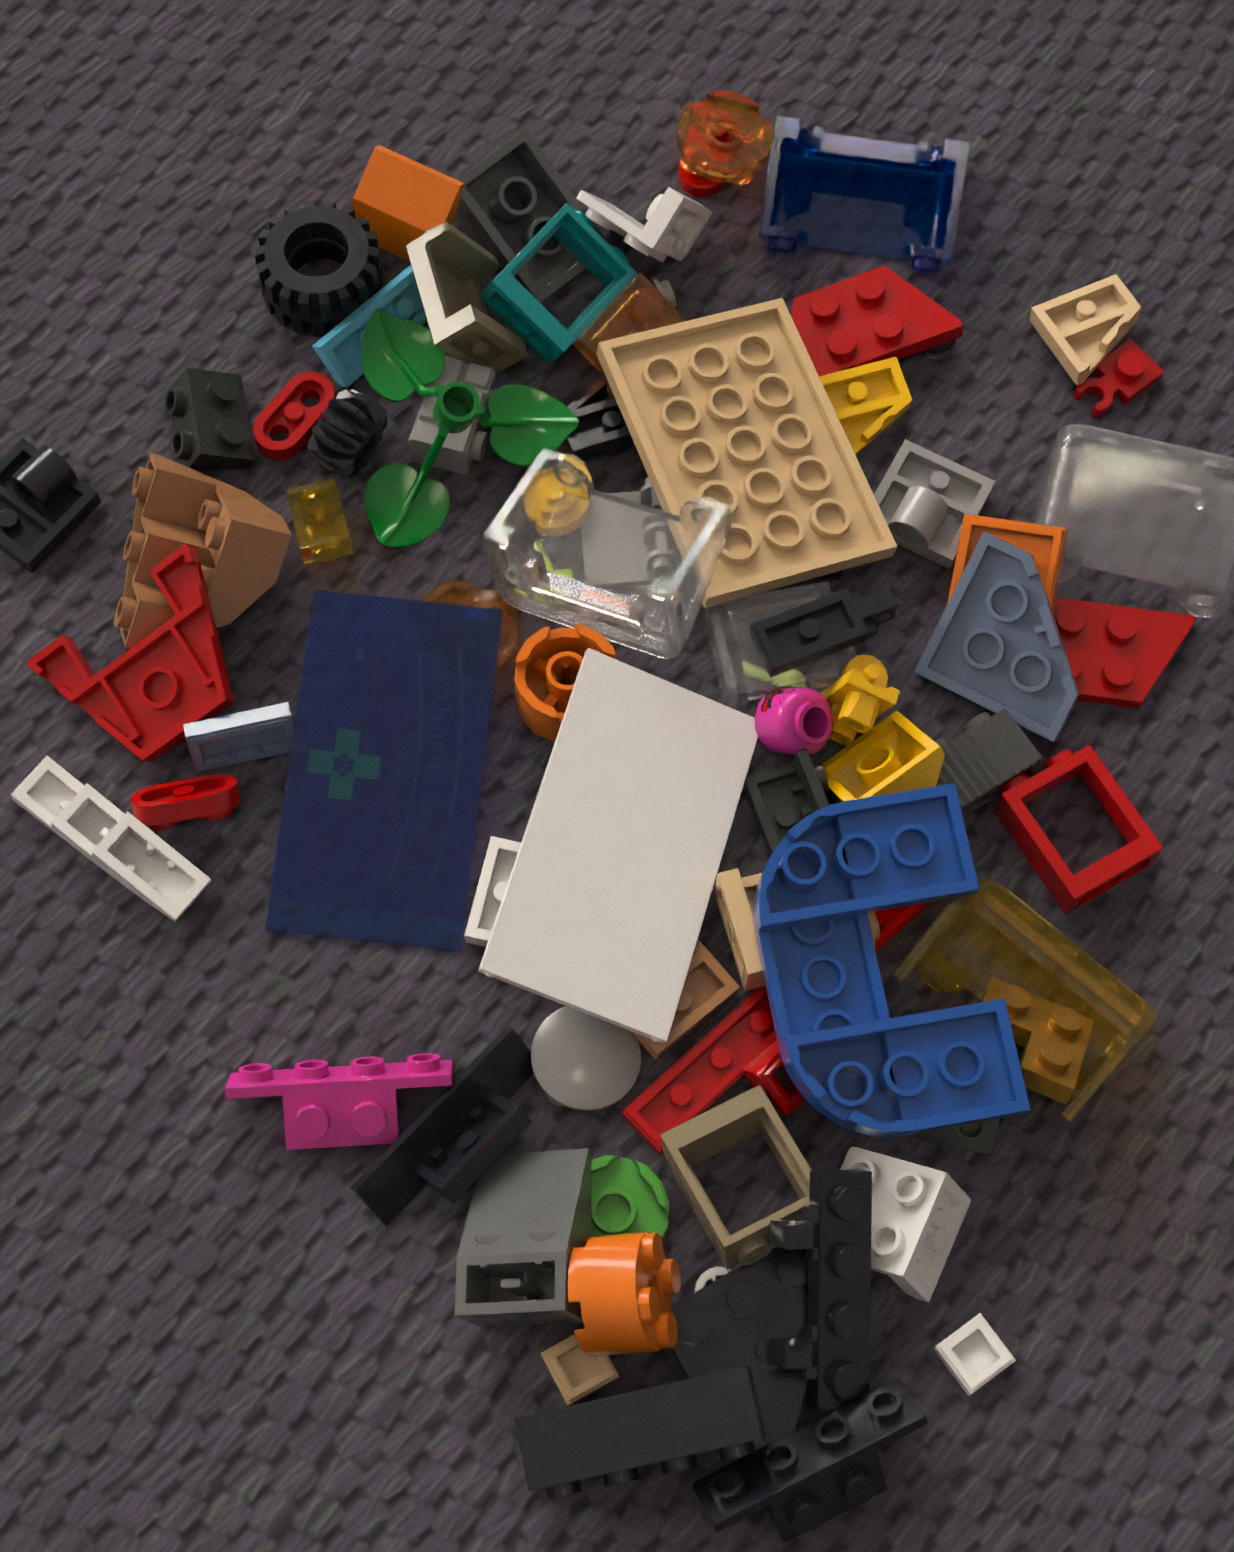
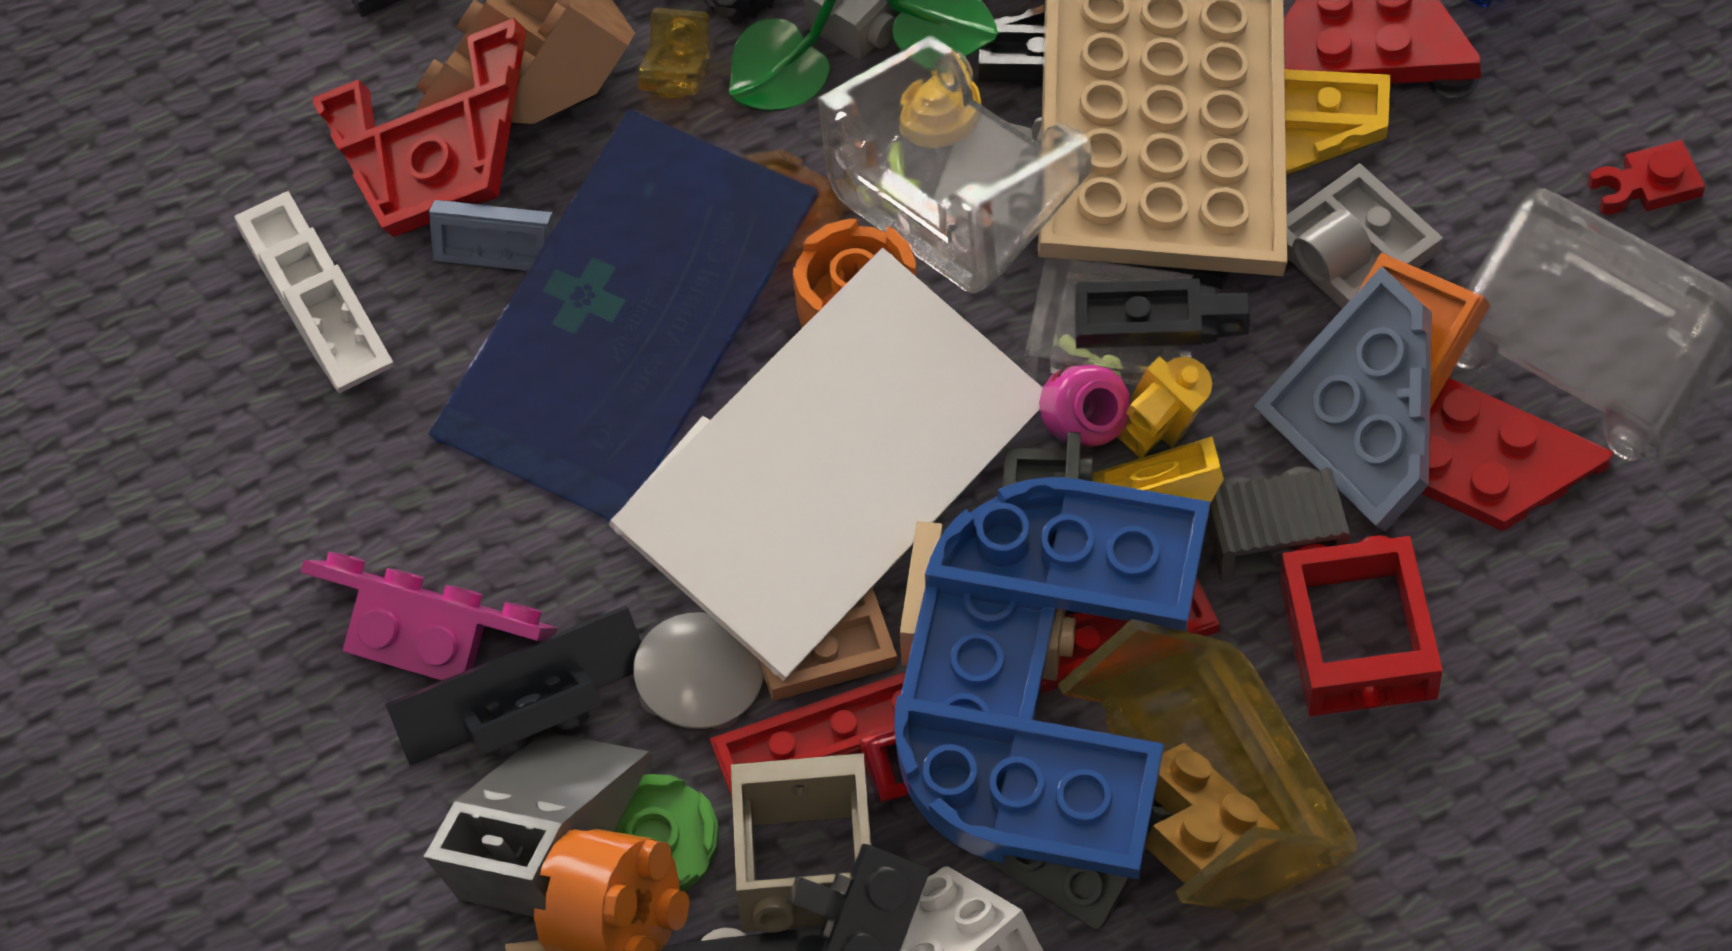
camera: 30 degrees right, 10 degrees down
(168, 803) = (384, 277): red plate -> none
(1086, 324) = (1636, 109): tan wing -> none

